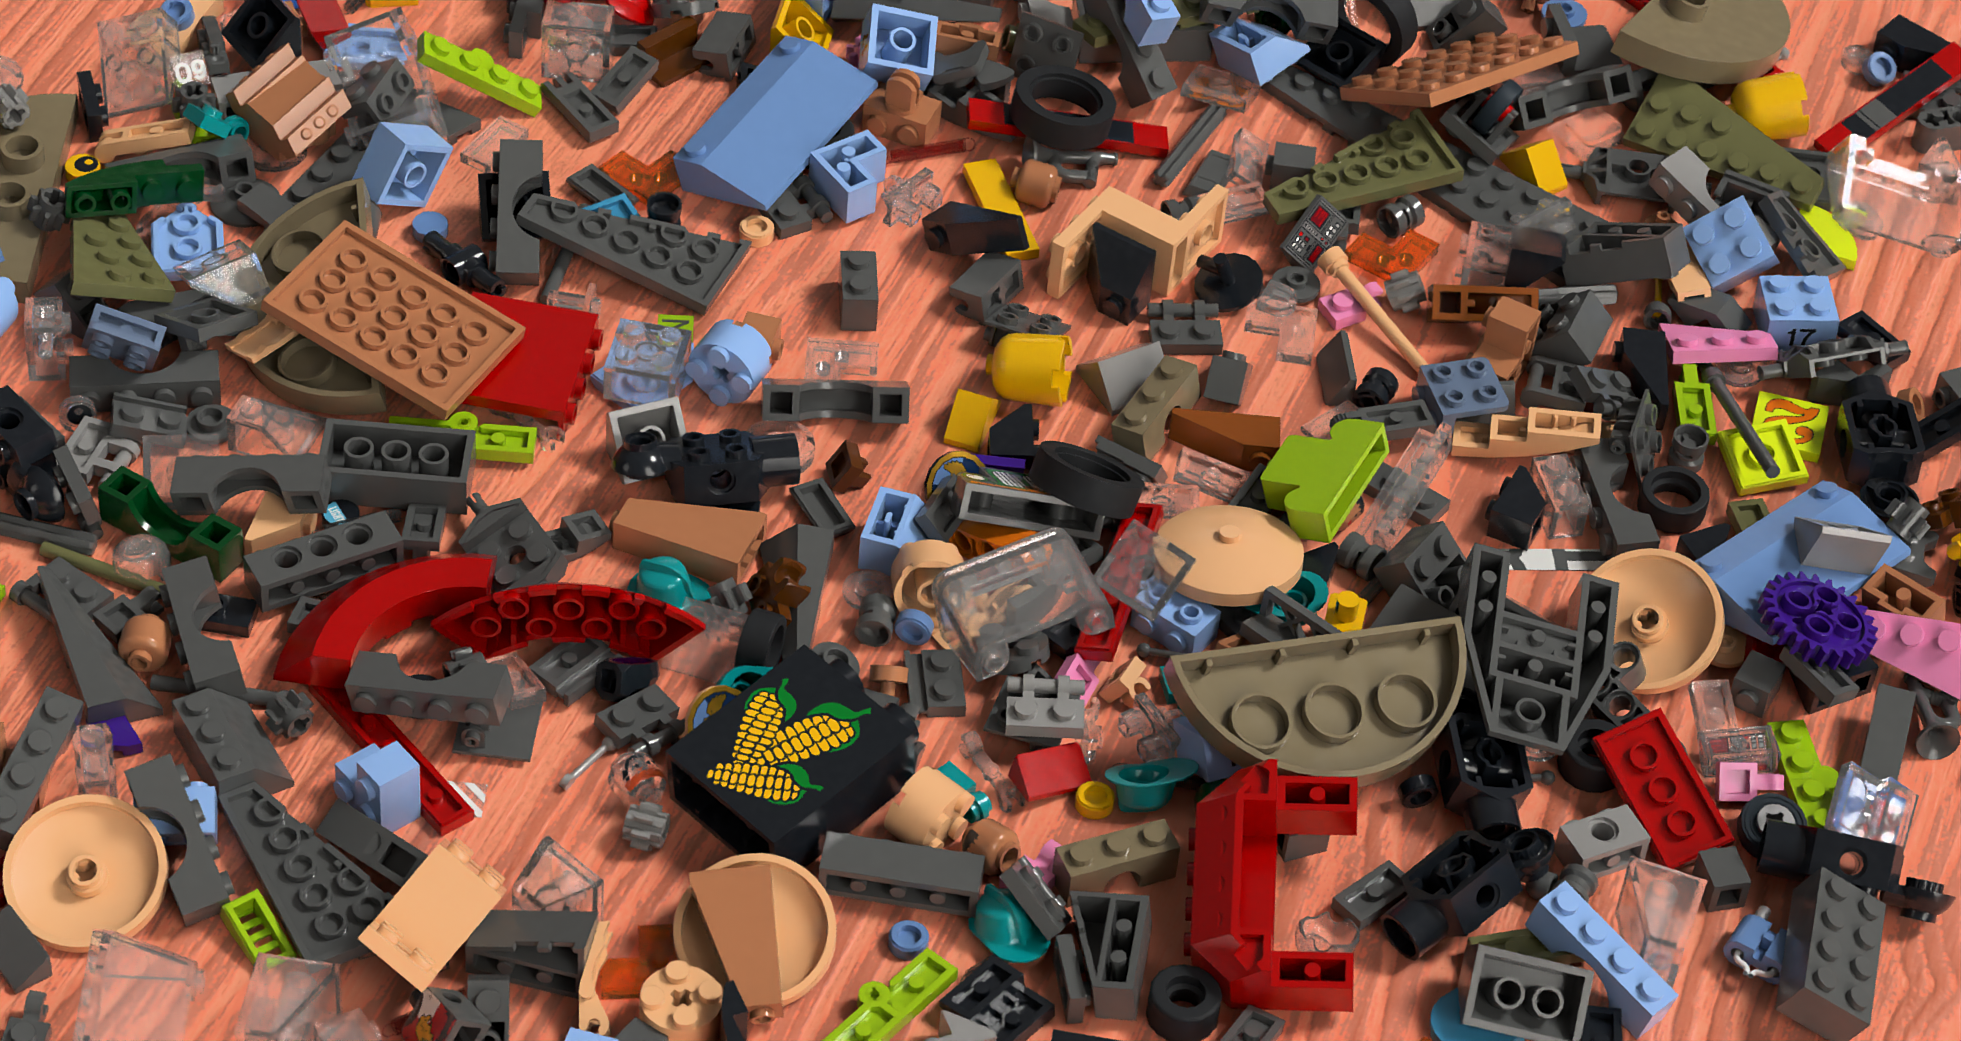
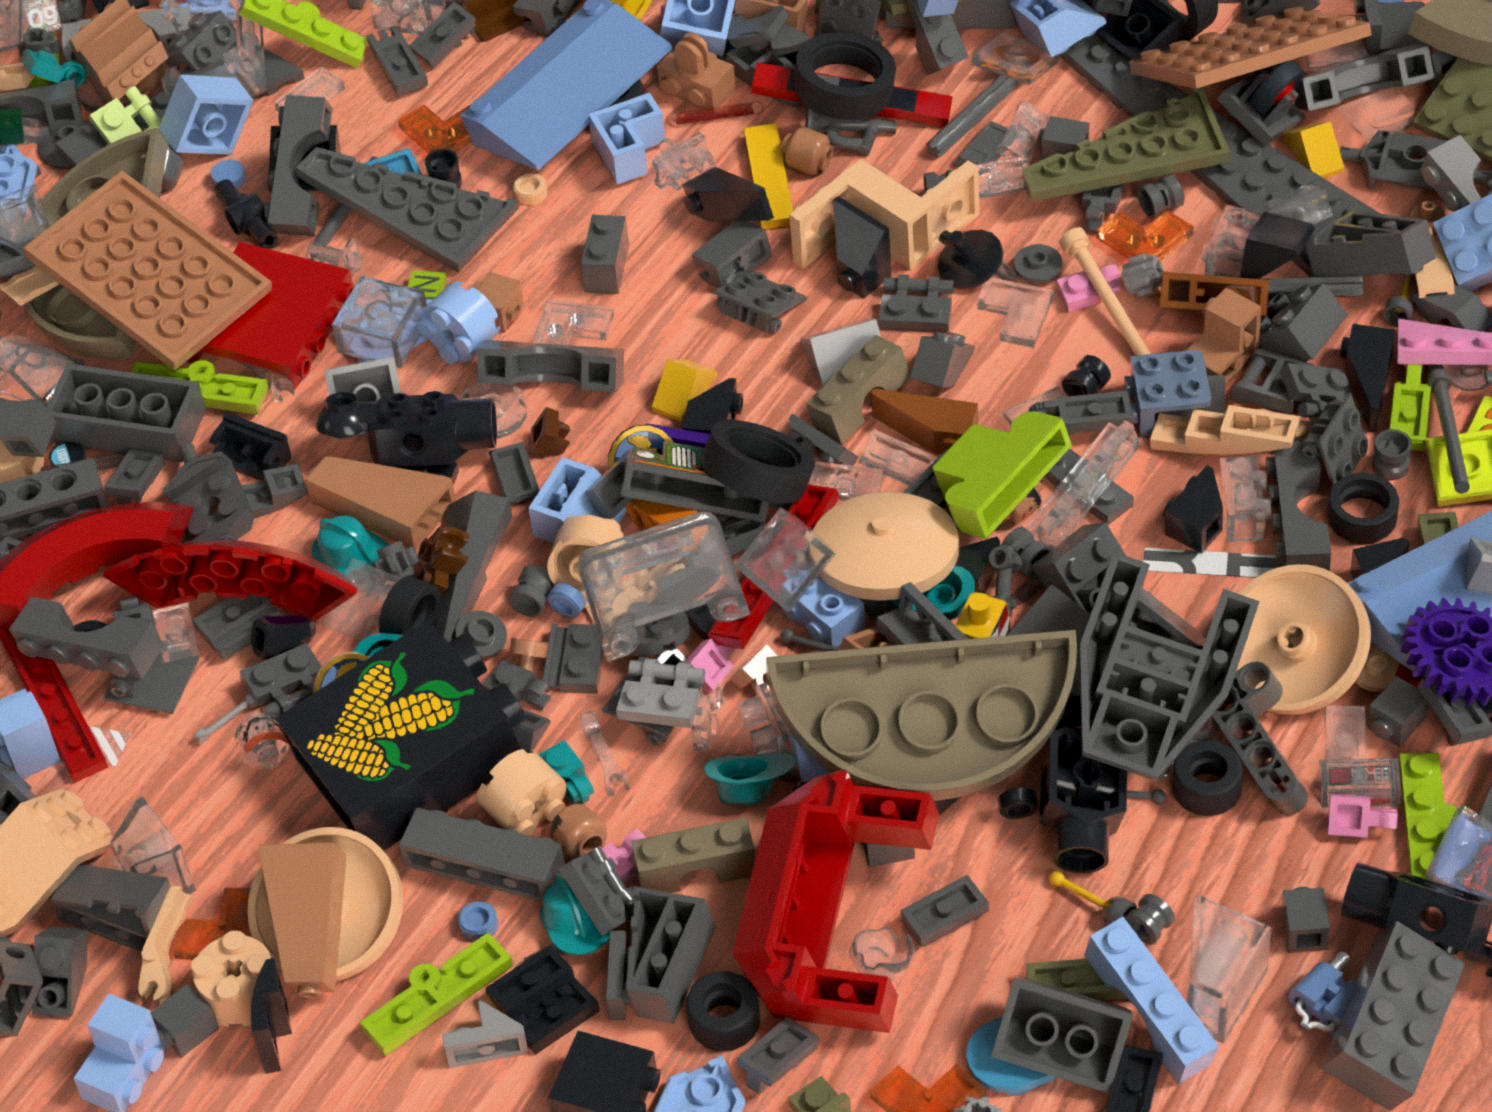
camera: 20 degrees right, 5 degrees up
(302, 176) = (117, 122): none -> yellowish green plate
(542, 491) = (250, 446): none -> black hinge
(597, 185) = (392, 137): dark grey tile -> none
(646, 826) = (257, 788): light grey gear -> none
(790, 216) = (566, 176): dark grey plate -> none
(864, 583) = (531, 552): clear piece -> none
(1031, 368) = (749, 341): yellow cylinder -> none
(1049, 771) = (657, 758): red slope -> none
(1094, 800) = (697, 790): yellow tile -> none
(1277, 299) = (1011, 279): clear tile -> none
(1313, 234) = (1063, 211): slope -> none
(1337, 370) = (1054, 355): dark grey slope -> none
(1350, 566) = (1007, 563): none -> dark grey bar
(1463, 886) = (1031, 909): black brick -> none
(1602, 841) = (1212, 875): light grey brick -> none
(1662, 789) = (1263, 822): red tile -> none
(1757, 810) = (1372, 848): black wheel -> none

